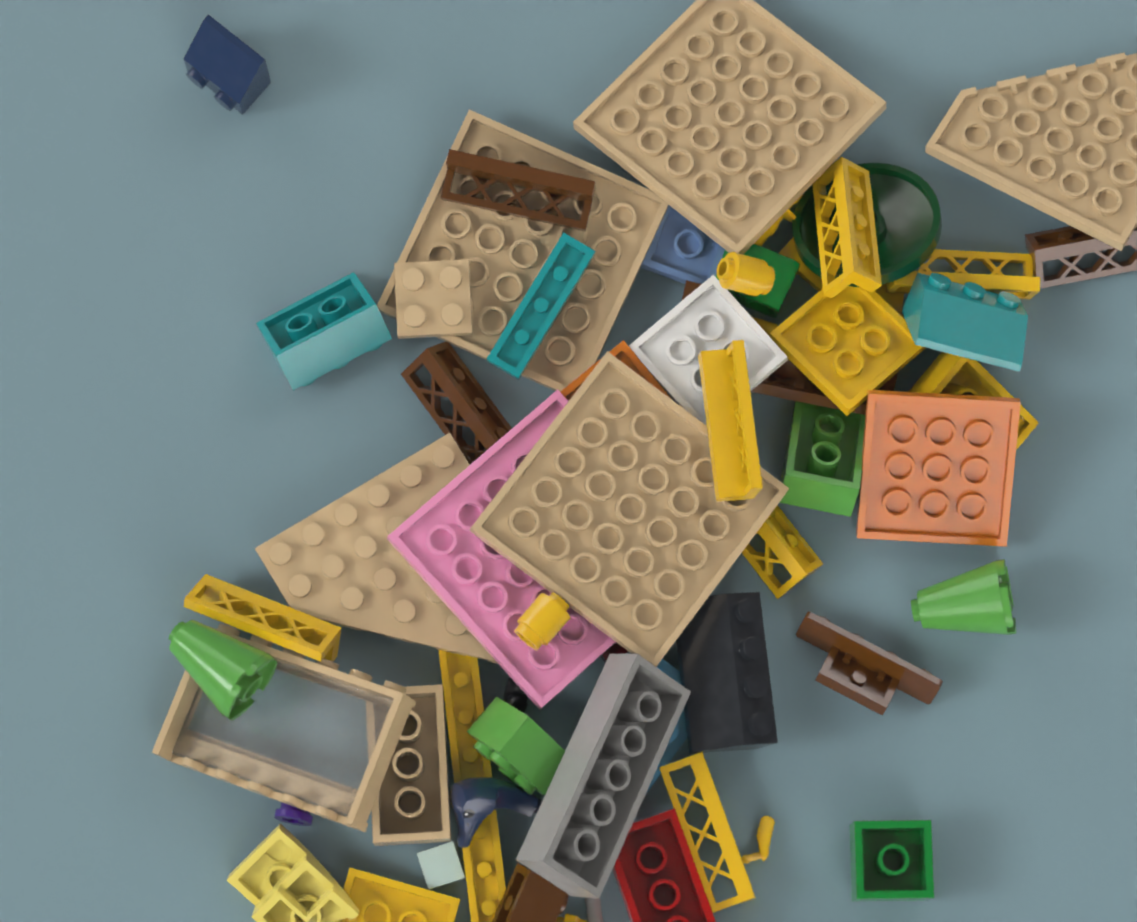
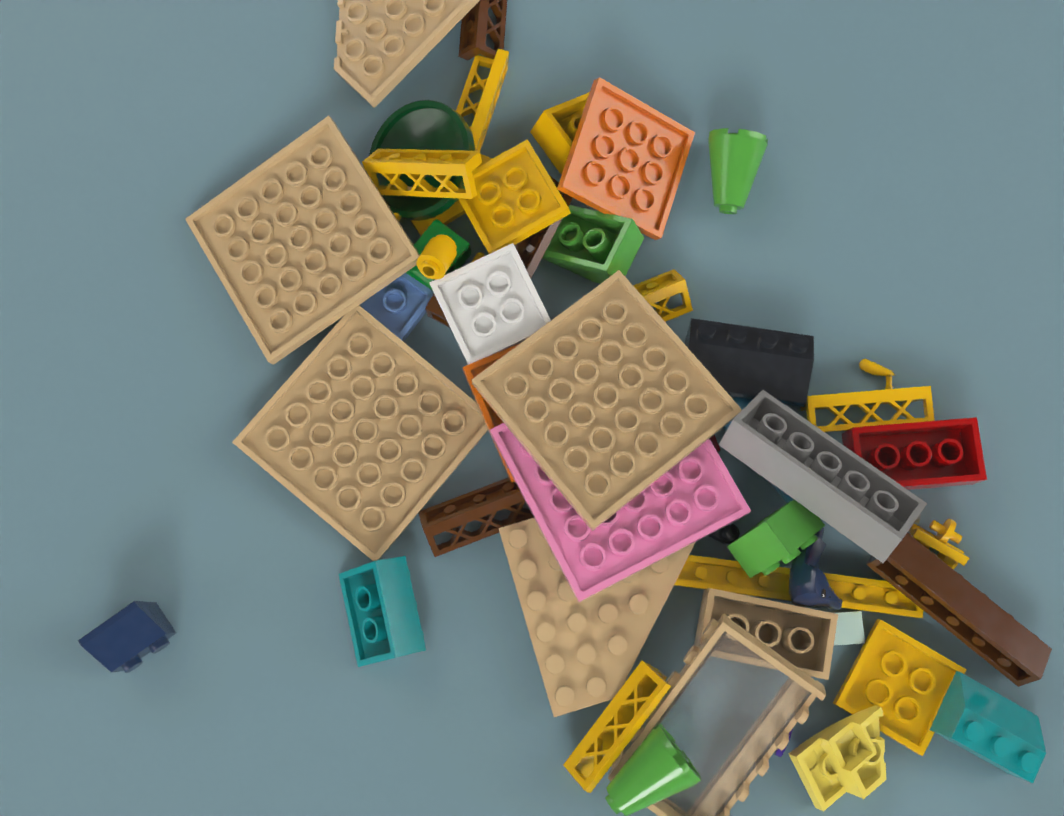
camera: 70 degrees left, 0 degrees up
(433, 298) = (382, 513): tan plate -> none
(518, 176) = (302, 413): reddish brown fence -> none
(541, 306) = (414, 426): teal plate -> none
(542, 620) = (683, 490): yellow brick -> none
(730, 423) = (557, 296): yellow fence -> none
(863, 669) = (765, 260): reddish brown bracket -> none
(891, 860) = (921, 277): green brick -> none
(966, 320) = (520, 105): teal slope -> none

